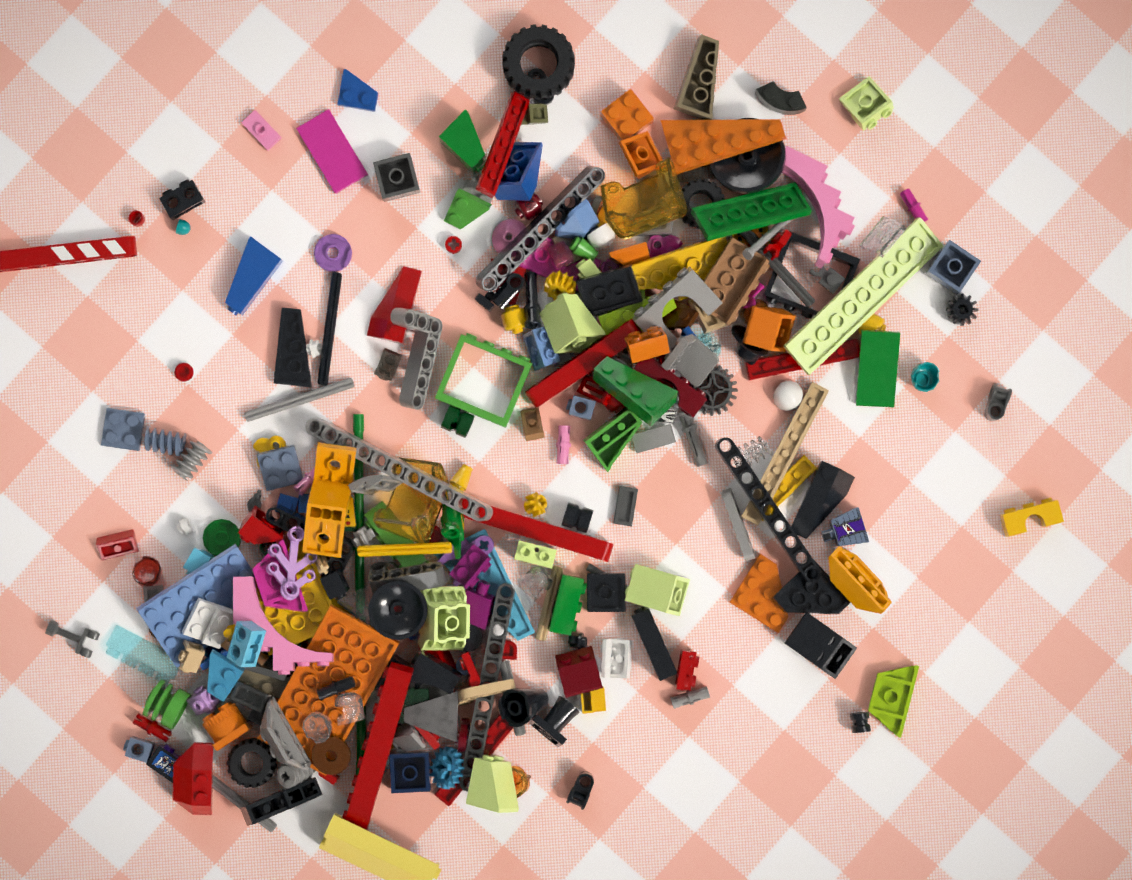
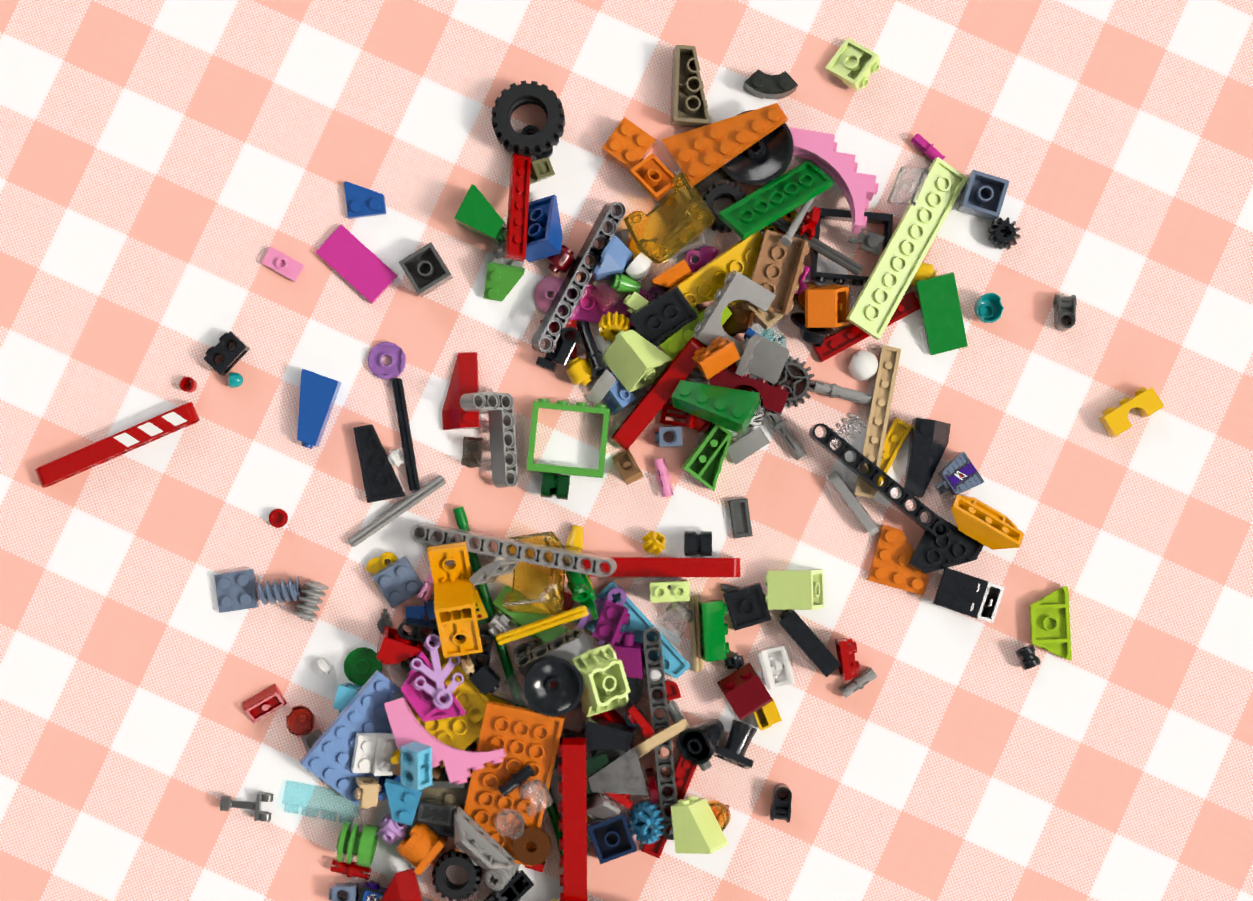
camera: 15 degrees left, 0 degrees up
(449, 240) = (504, 321): red bush -> none
(530, 340) = (601, 387): none -> white sticker
(762, 417) = (833, 390): none -> light grey pin

